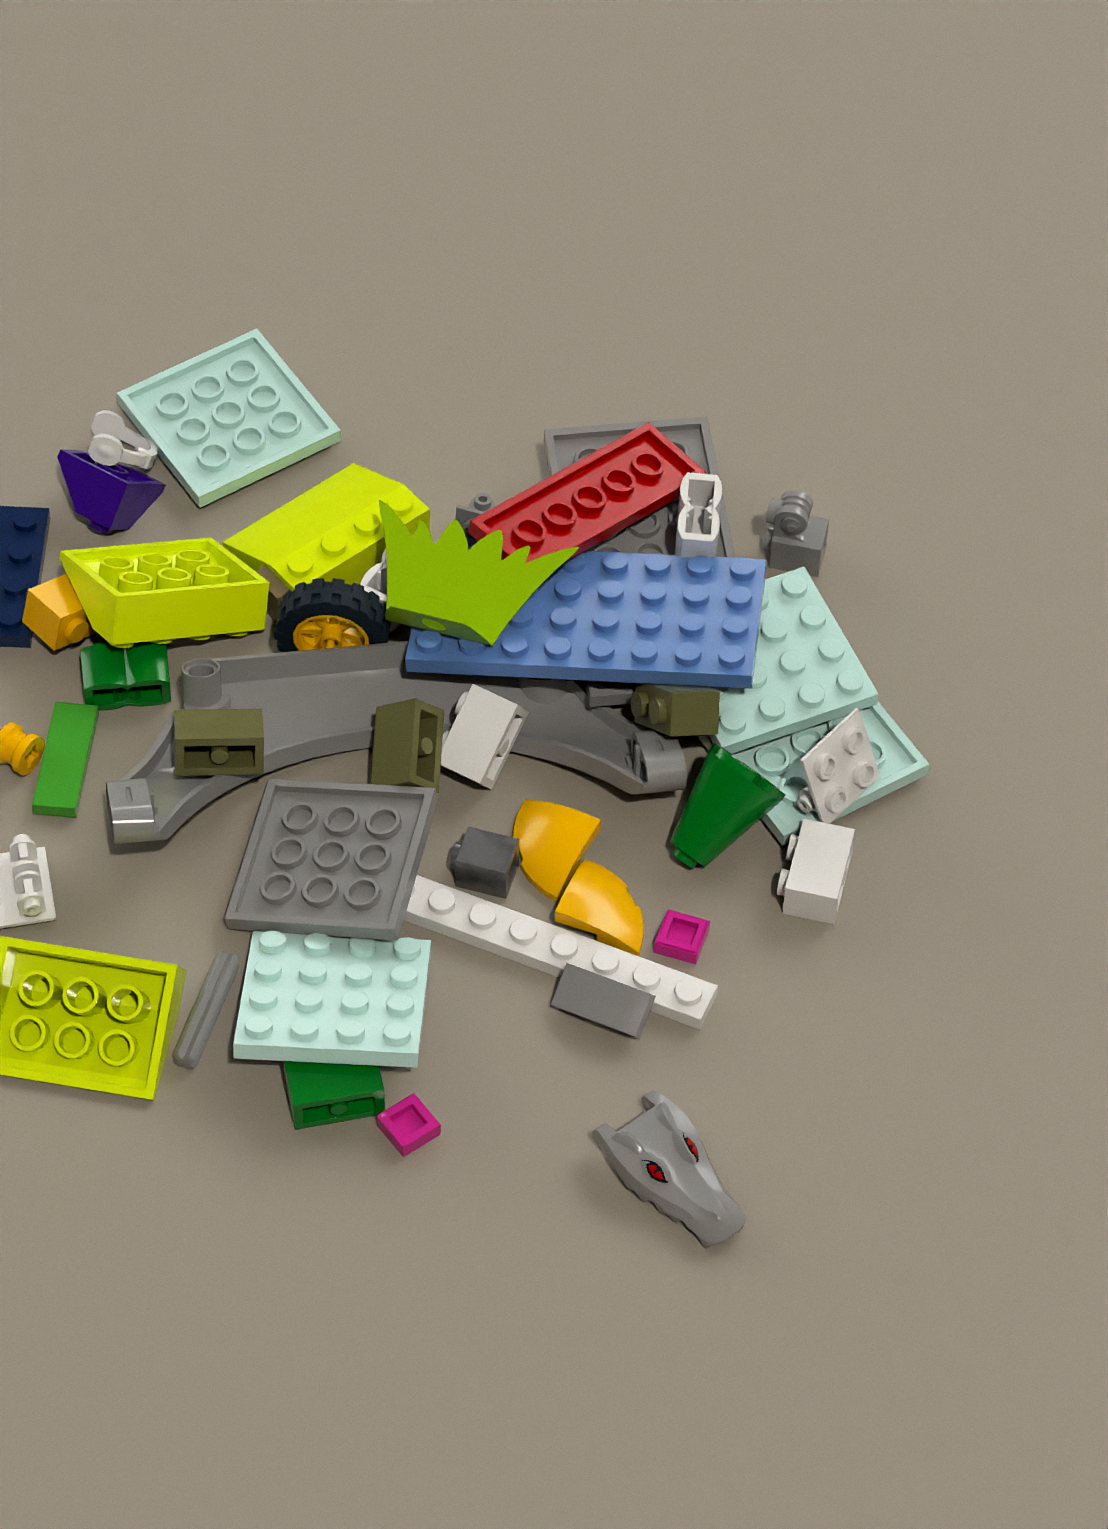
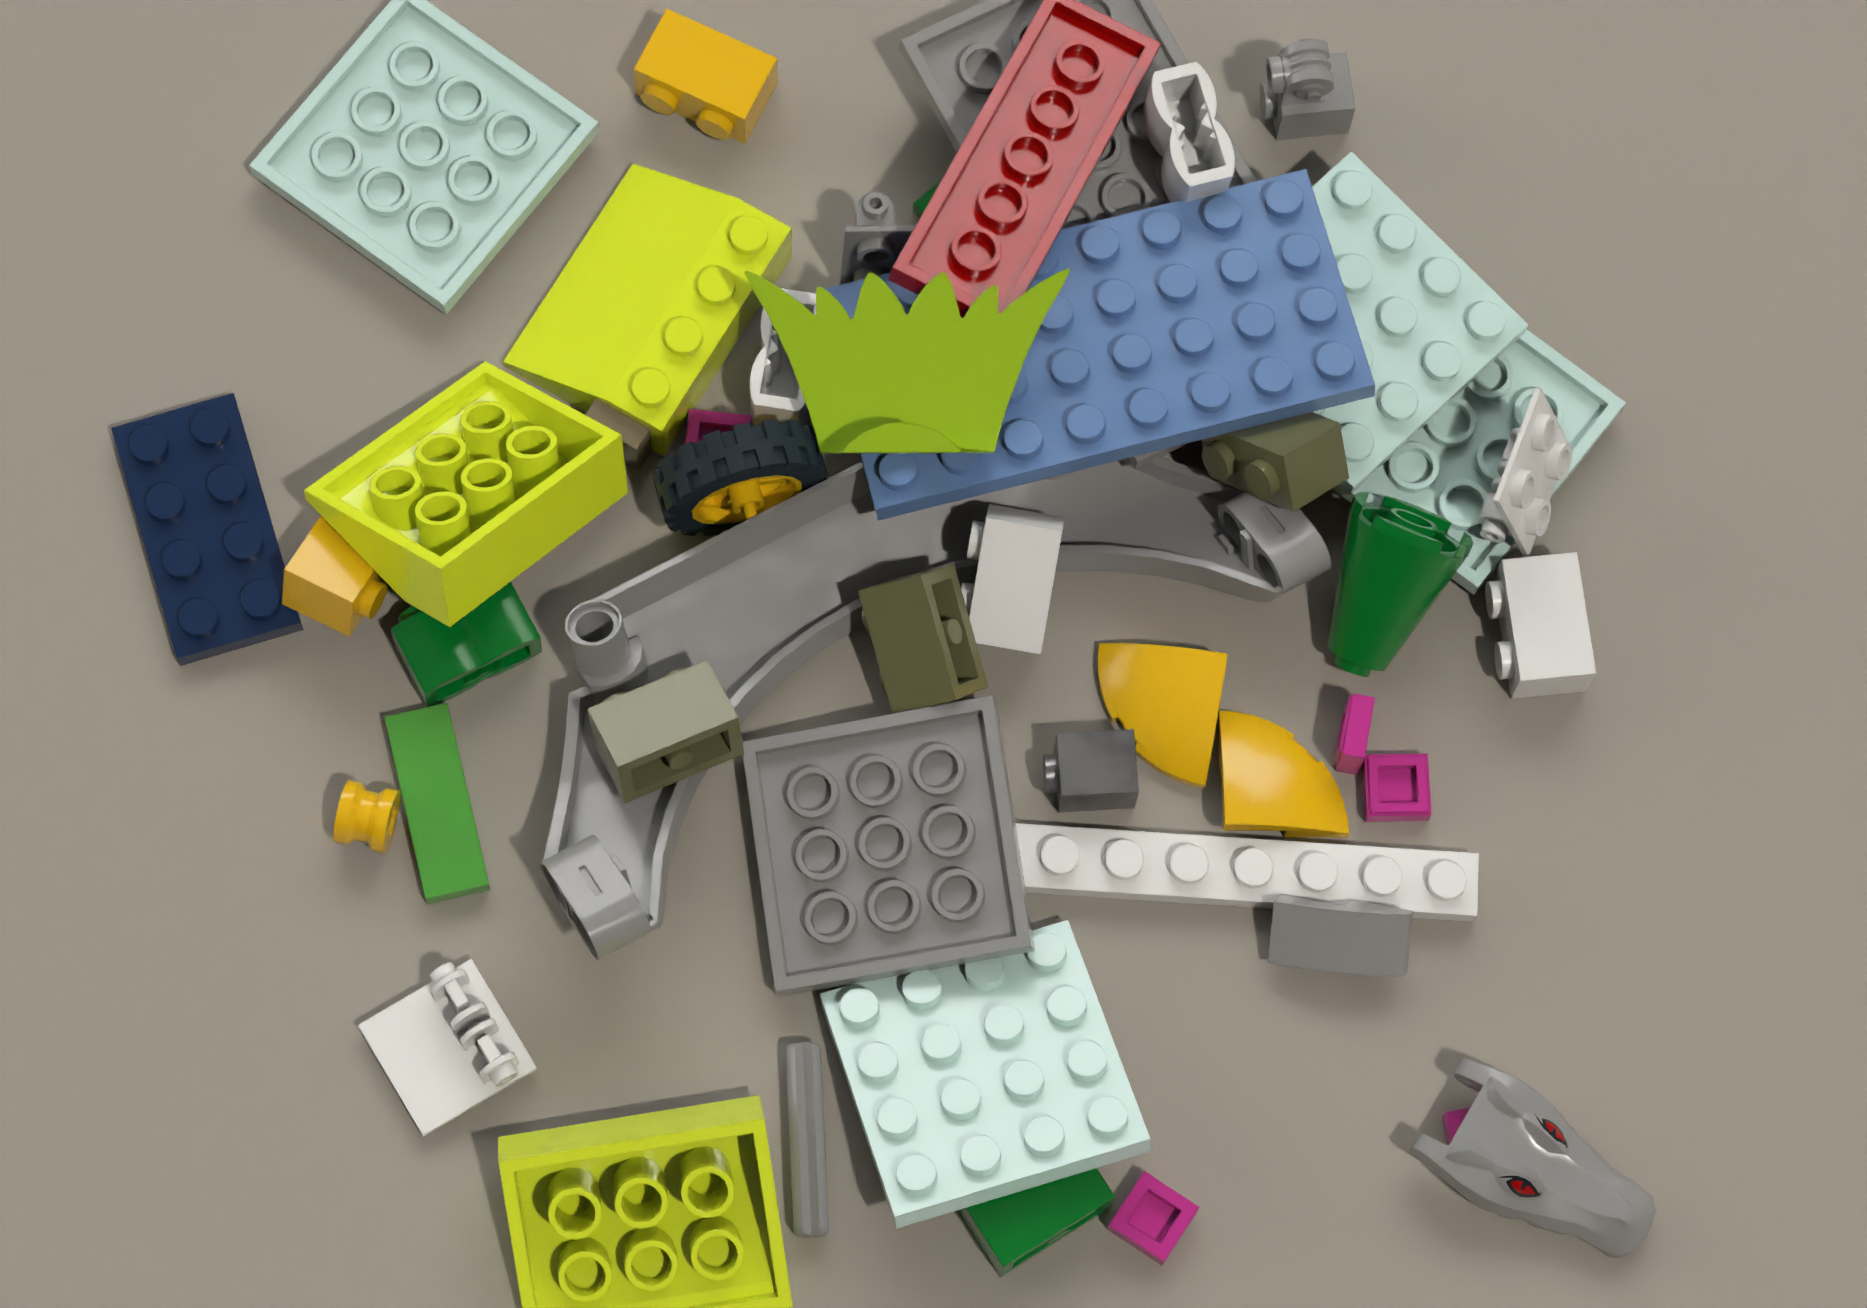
camera: 25 degrees left, 20 degrees up
(106, 444) = (293, 283): white piece -> none
(106, 494) = (307, 337): dark purple slope -> none
(419, 427) = (705, 77): none -> yellow brick
(665, 892) = (1353, 734): none -> dark pink tile

